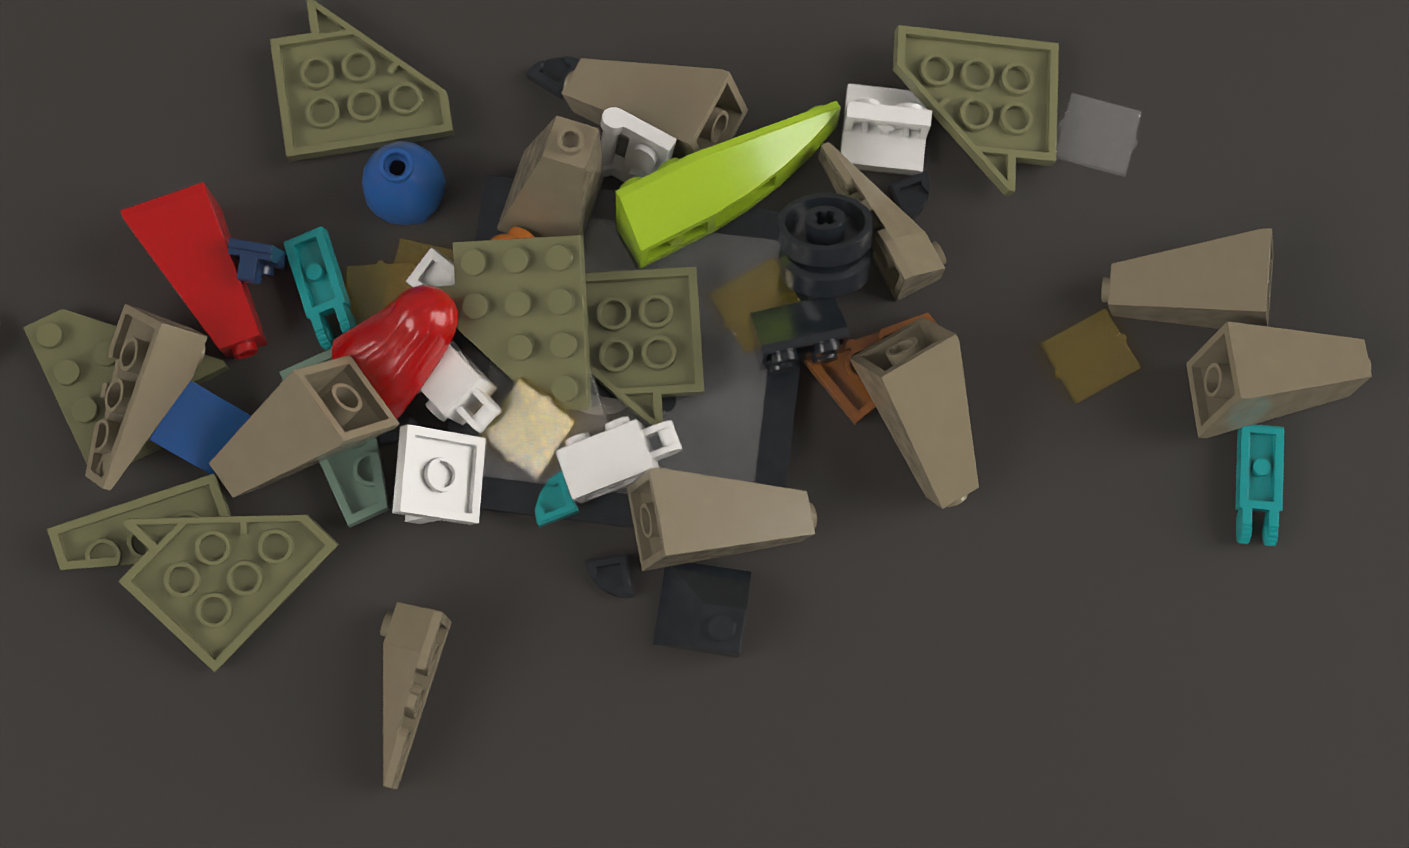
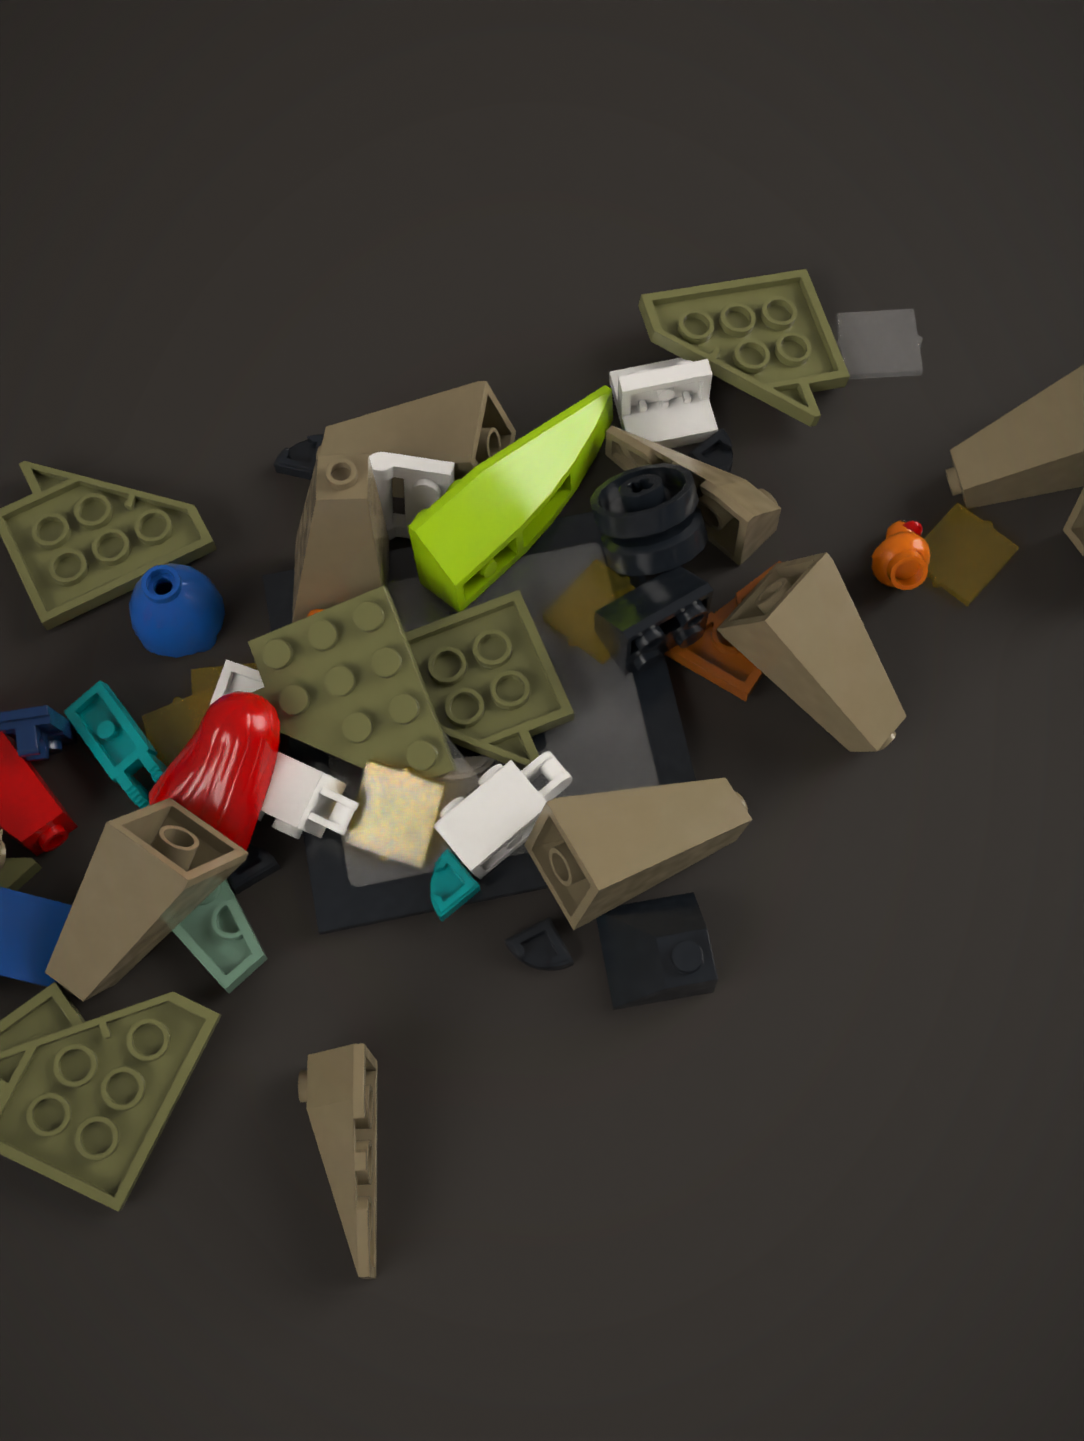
camera: 10 degrees left, 10 degrees down
(438, 476) = (310, 899): white bracket -> none
(1034, 344) = (902, 557): none -> orange animal

